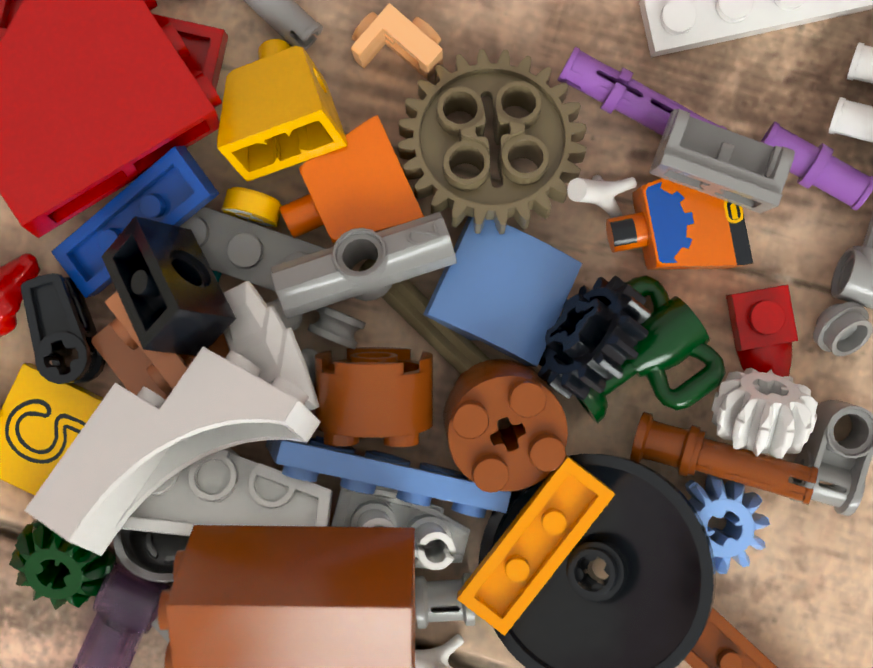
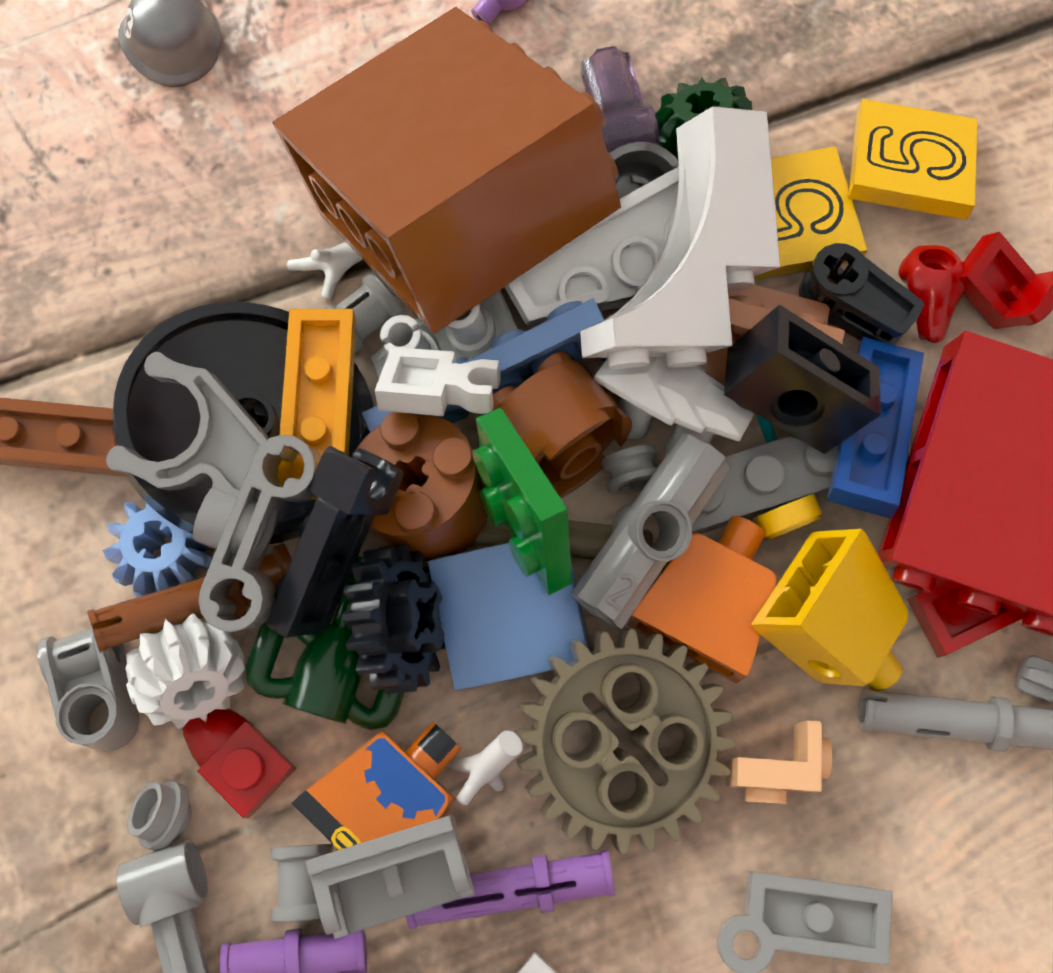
camera: 145 degrees right, 15 degrees down
(444, 493) = (430, 379): none -> white plate
(446, 360) = (524, 502): none -> green plate
(600, 425) = (331, 538): none -> black plate
(639, 505) = (245, 492): none -> light grey piece
(774, 224) = (295, 886): none -> light grey bush

